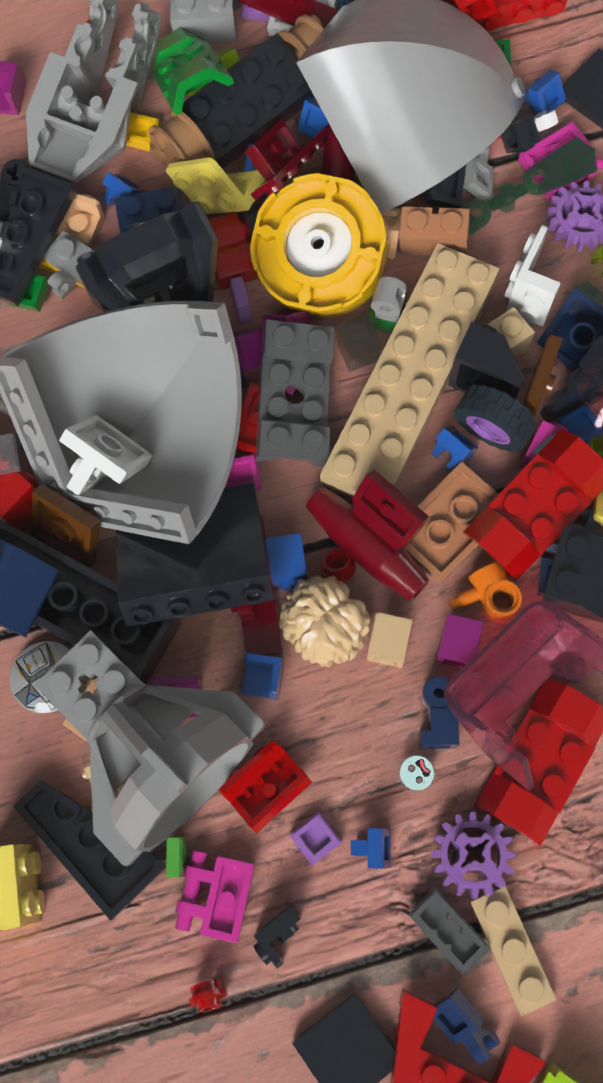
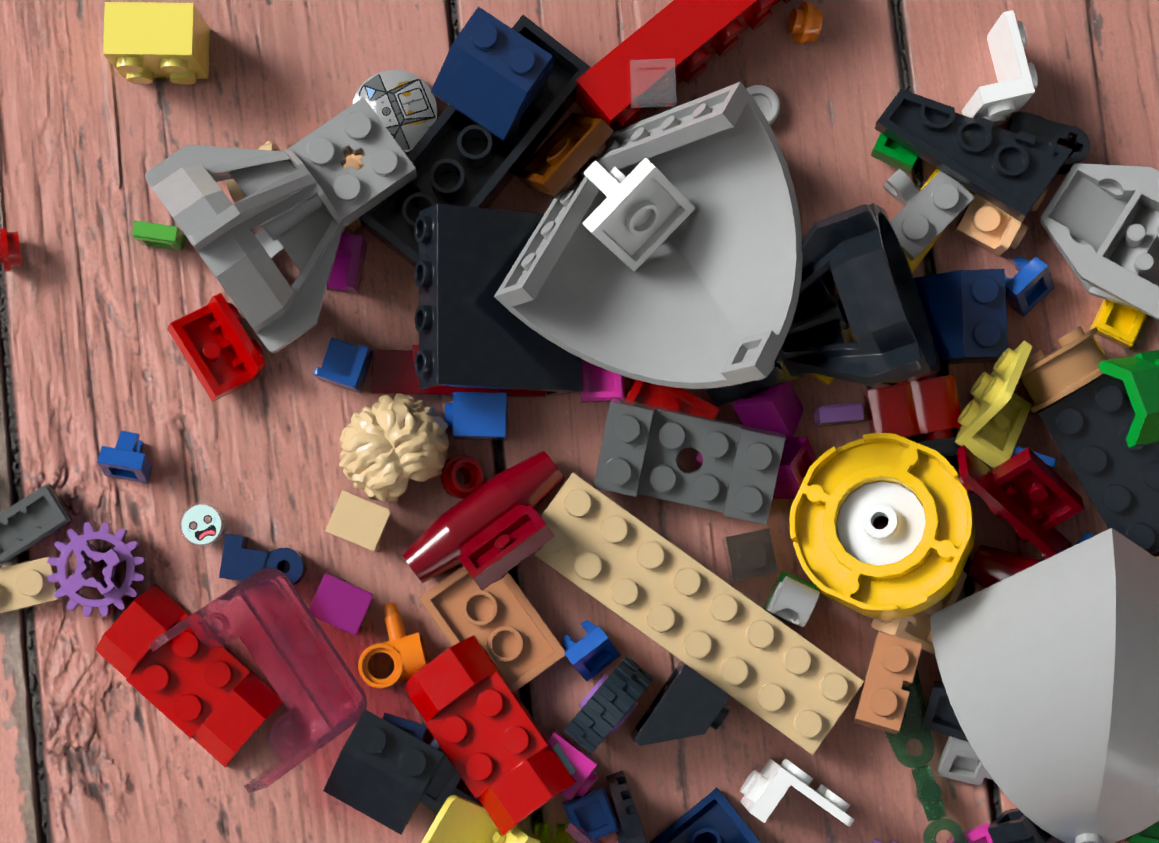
camera: 90 degrees right, 10 degrees up
(69, 835) = (208, 118): black wing -> none
(226, 897) = (104, 285): dark pink plate -> none
(280, 927) = (61, 339): black bracket -> none
(315, 838) = (152, 396): medium lavender tile -> none
(516, 331) = (724, 749): tan brick -> none
(542, 379) = (649, 774): reddish brown plate -> none

